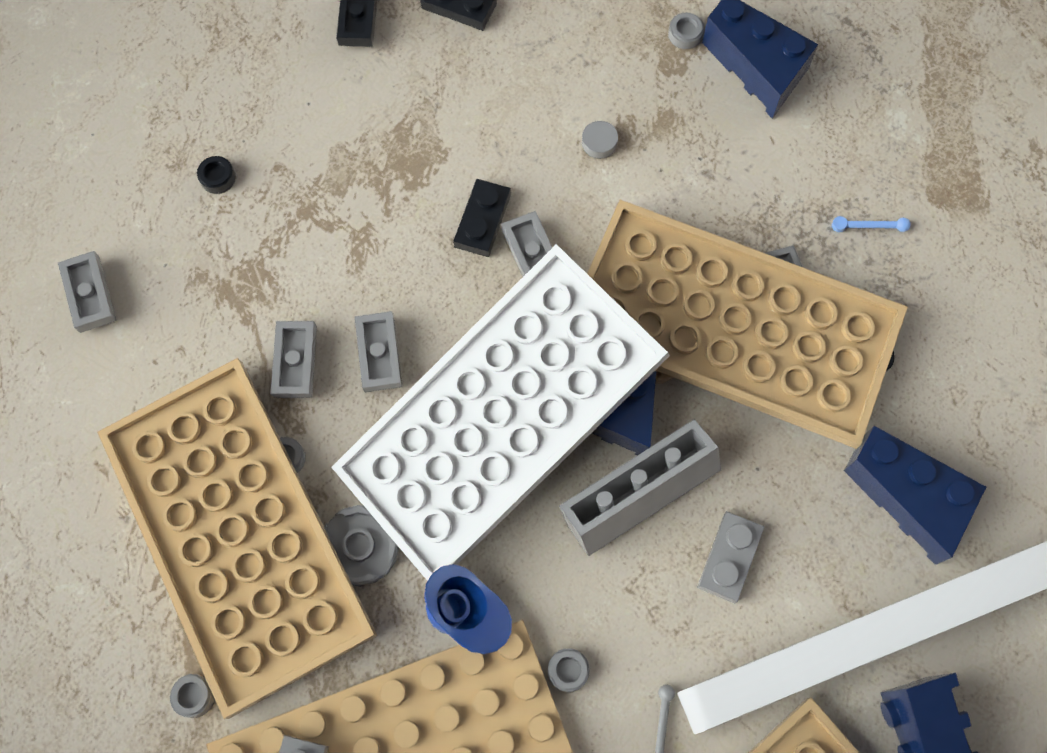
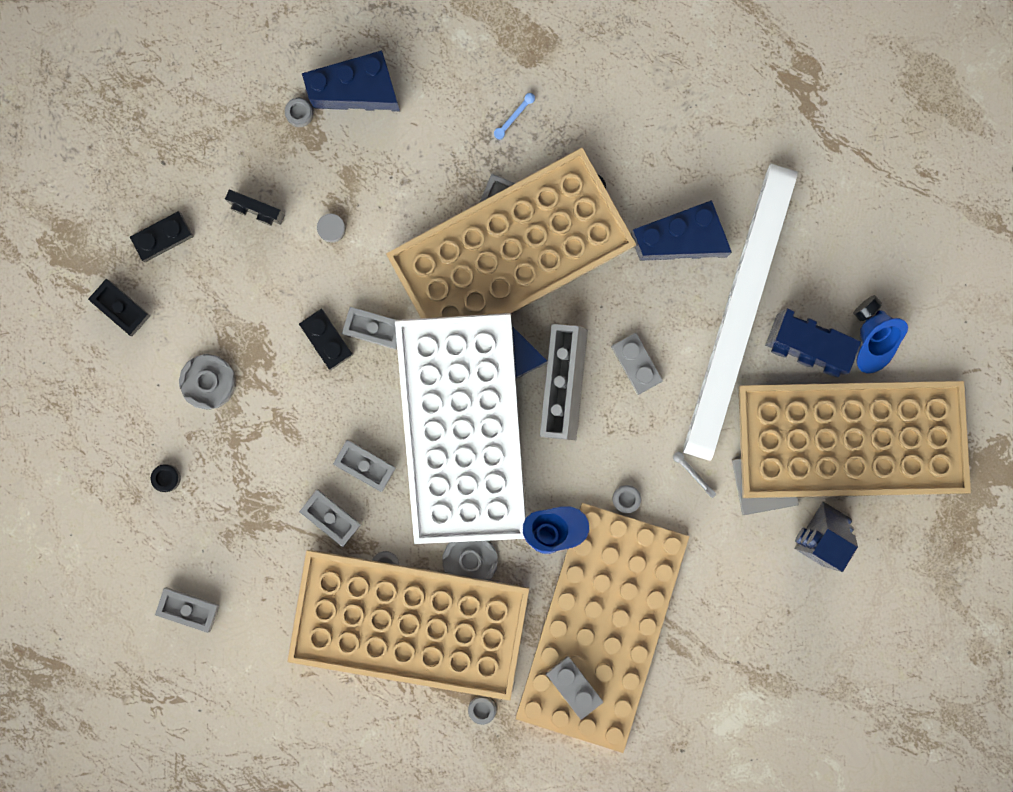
camera: 50 degrees left, 15 degrees up
(347, 142) = (207, 381): none -> light grey tile
(561, 65) = (244, 204): none -> black plate

